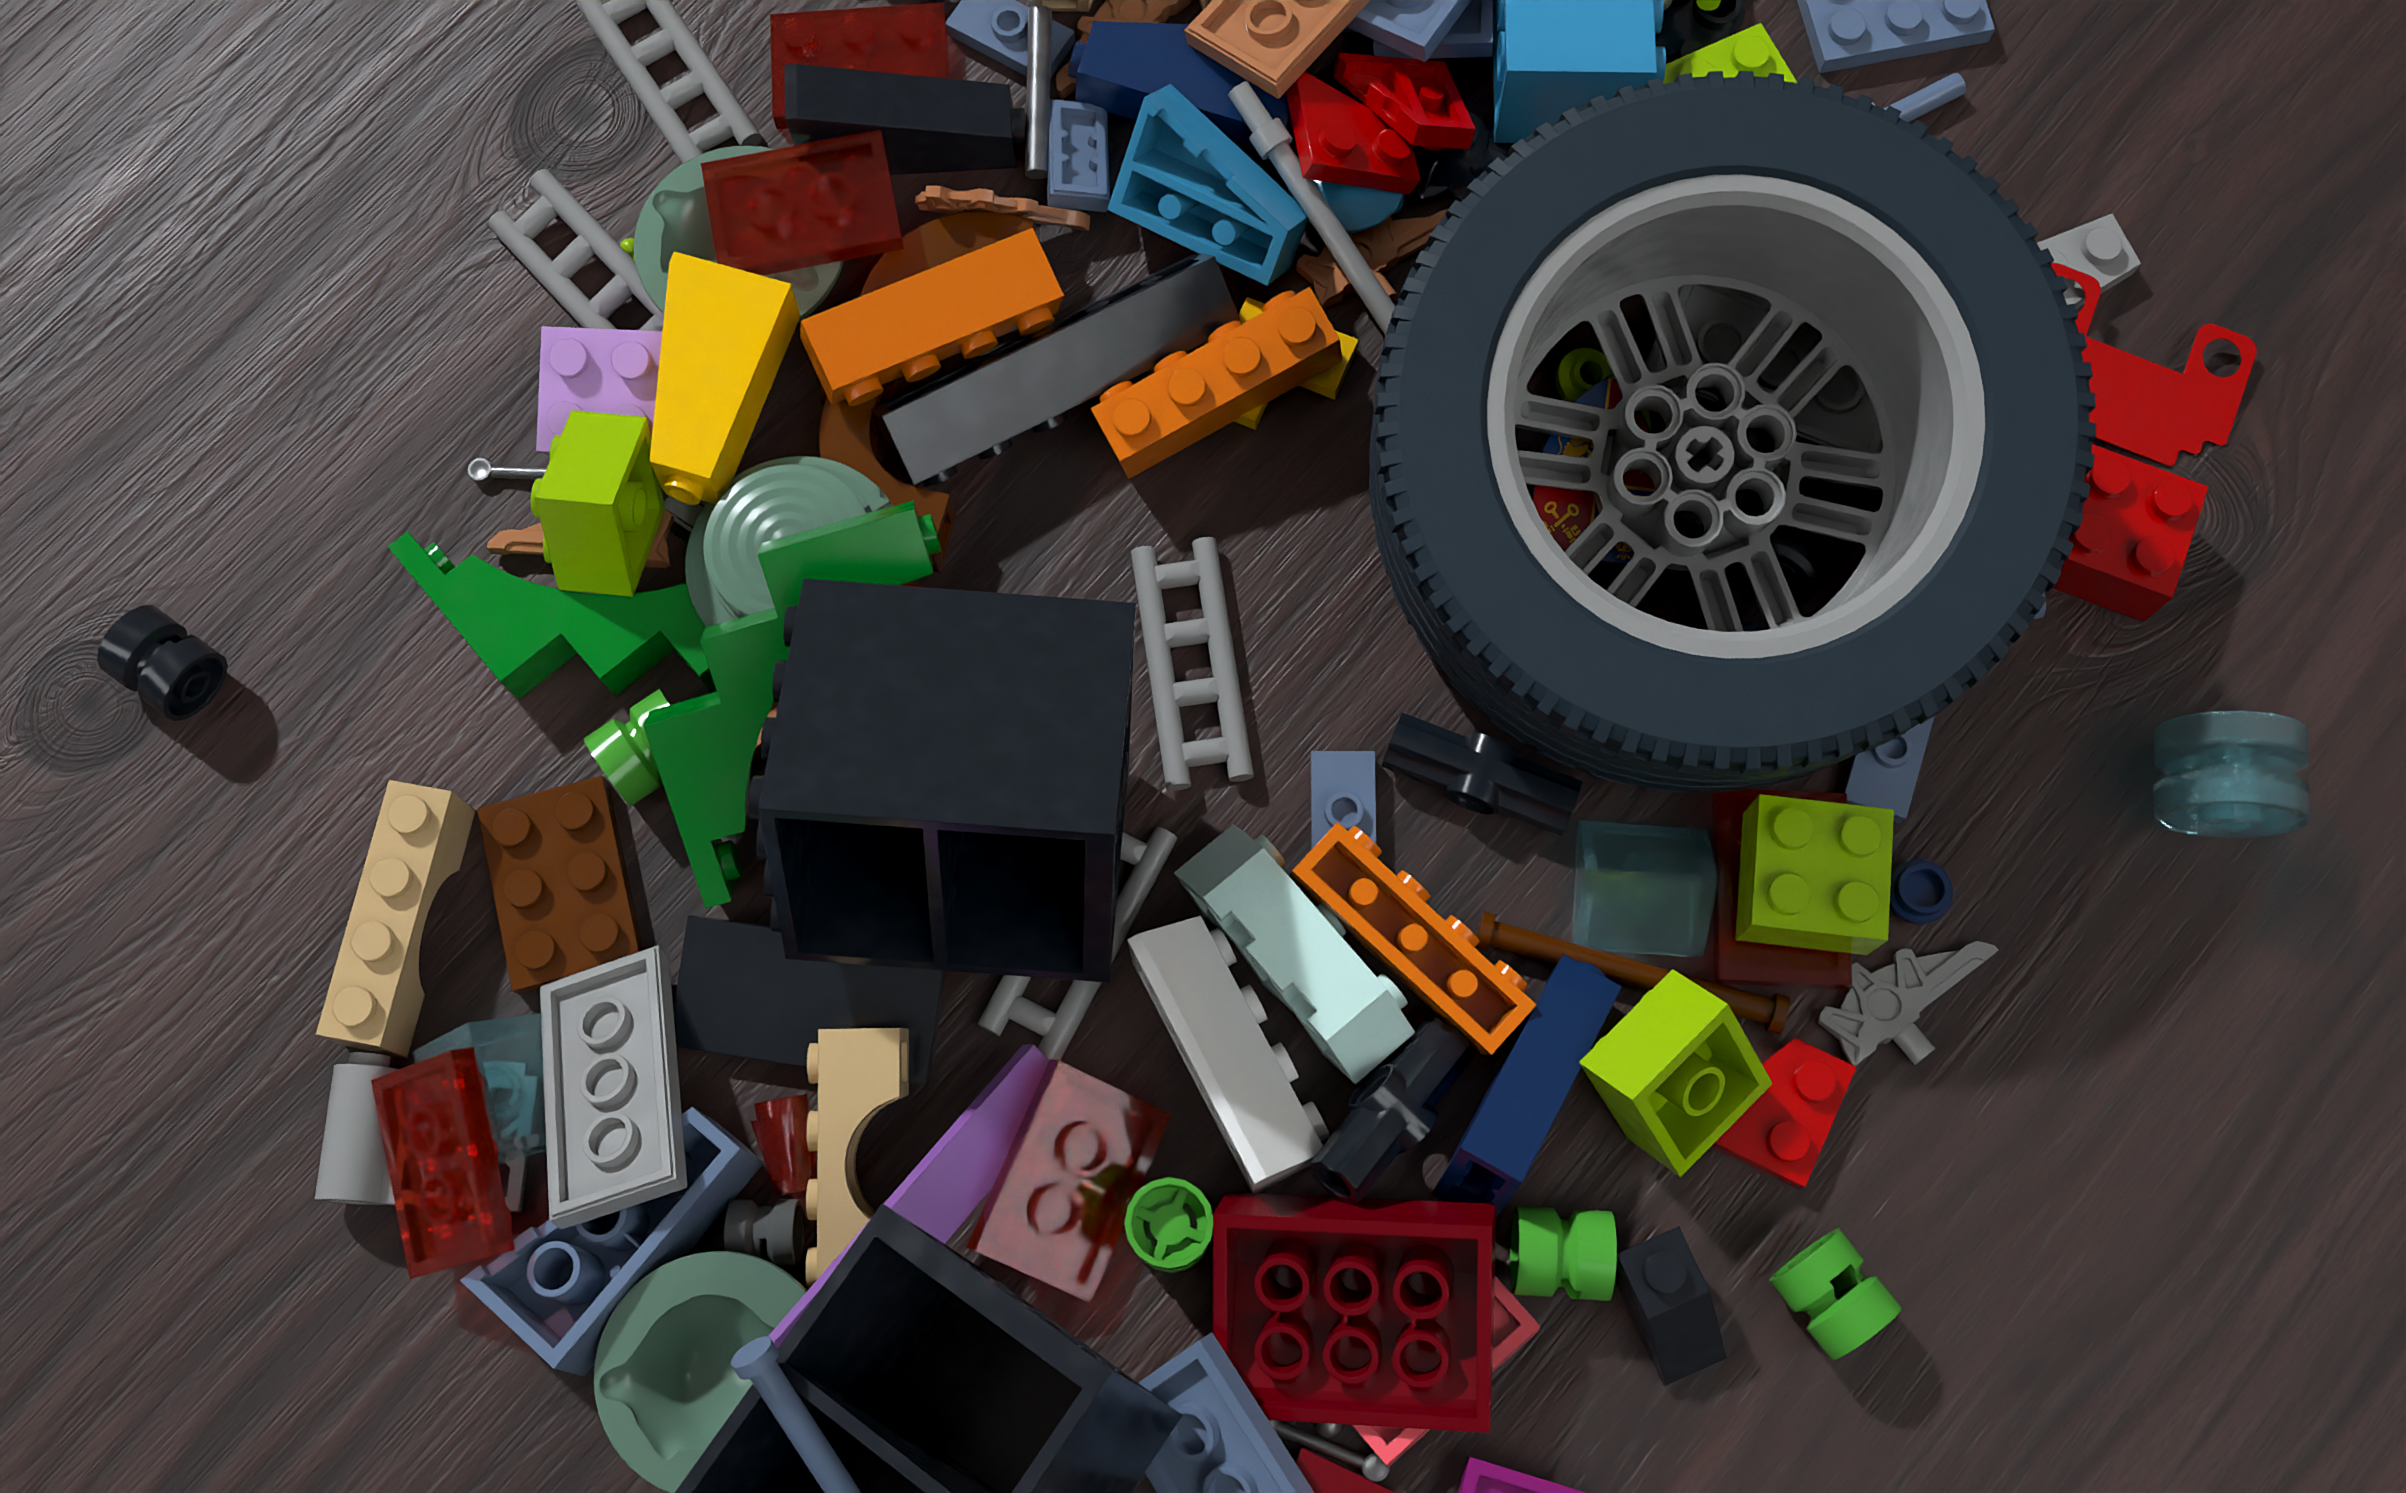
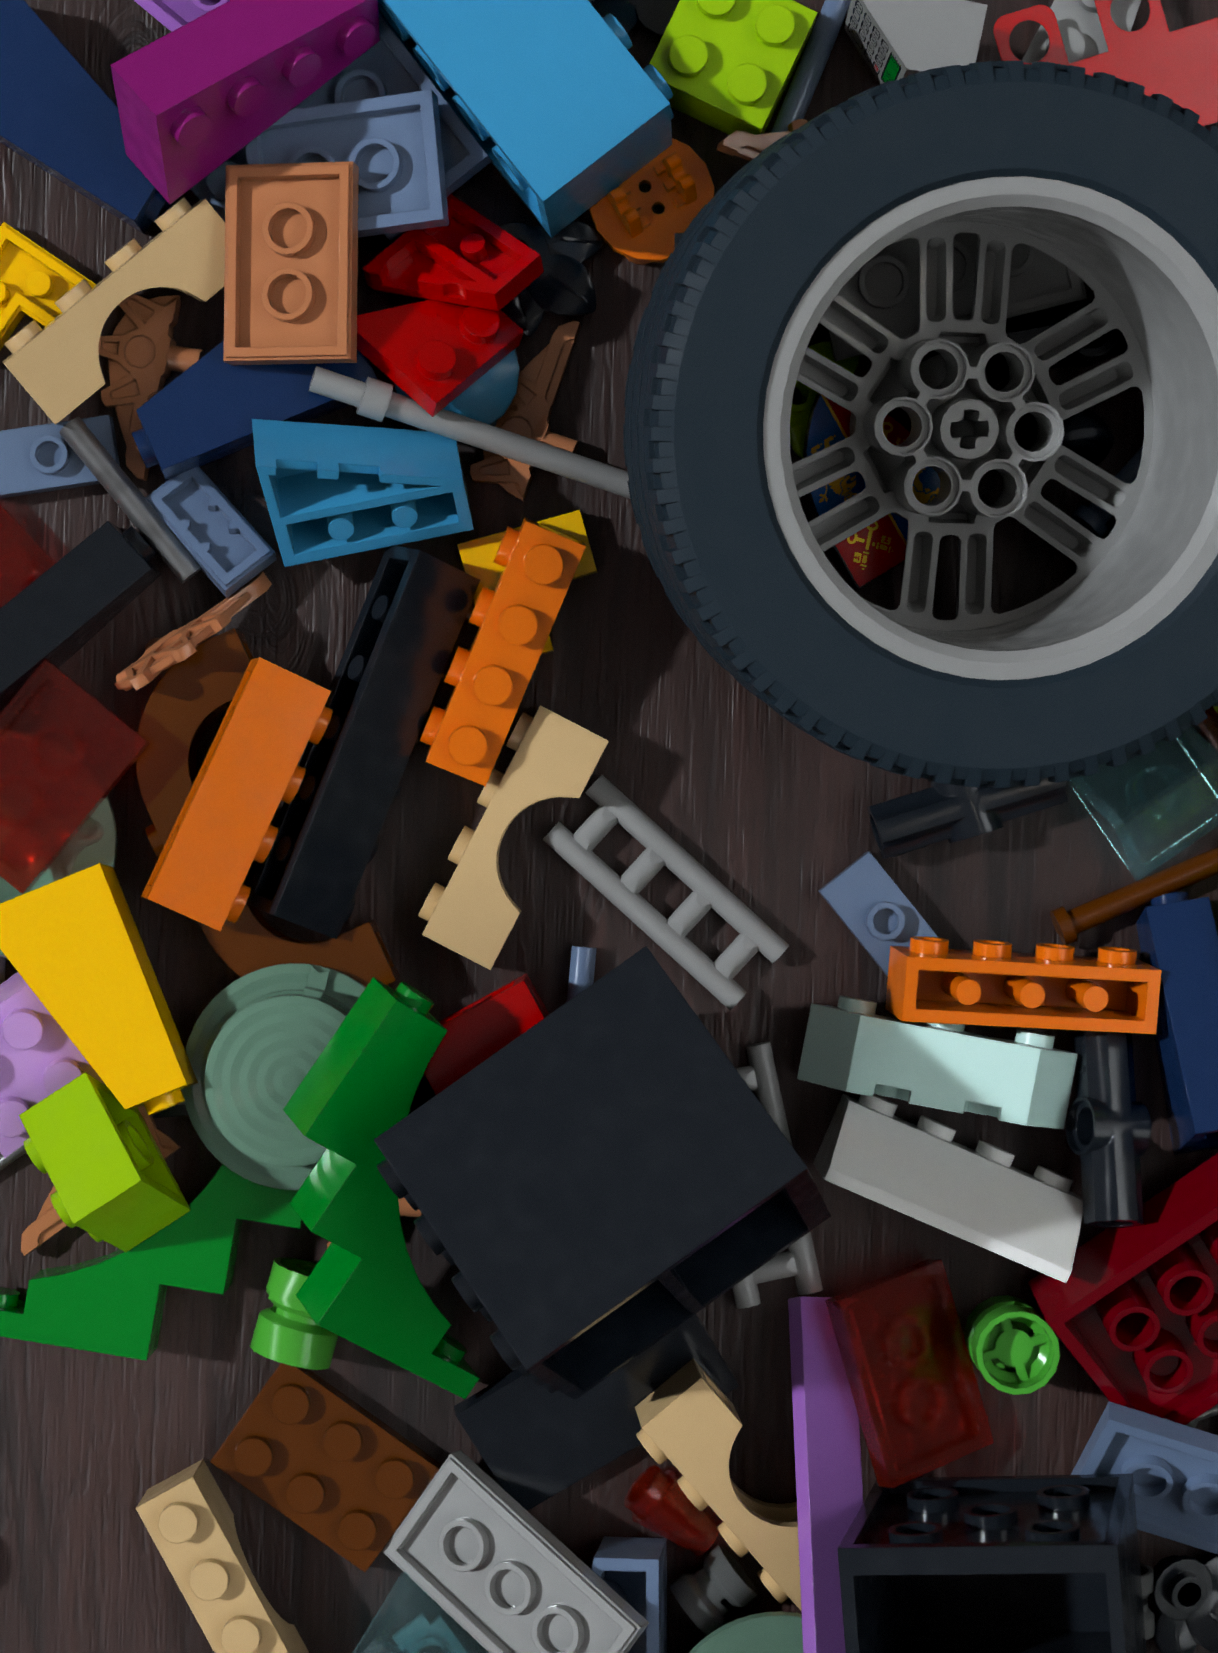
camera: 45 degrees left, 15 degrees up
(1179, 495) = (475, 909): none -> tan arch

